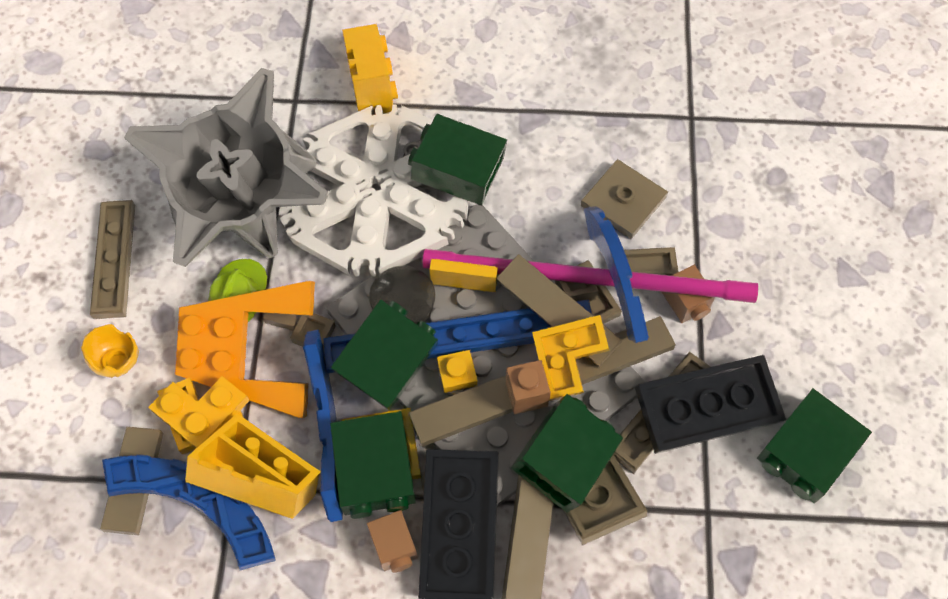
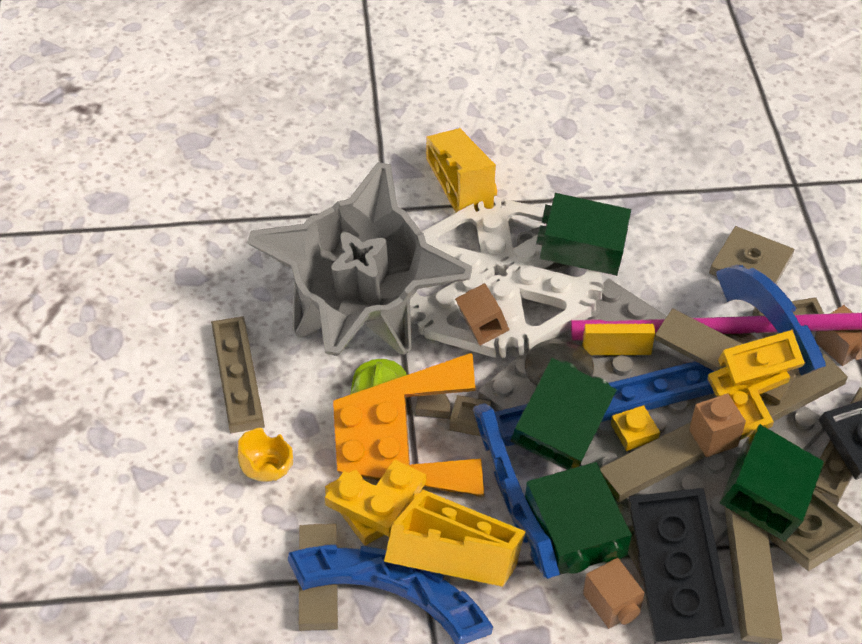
camera: 10 degrees left, 15 degrees down
(338, 234) = (482, 314): none -> medium nougat brick
(584, 327) = (762, 358): none -> yellow panel

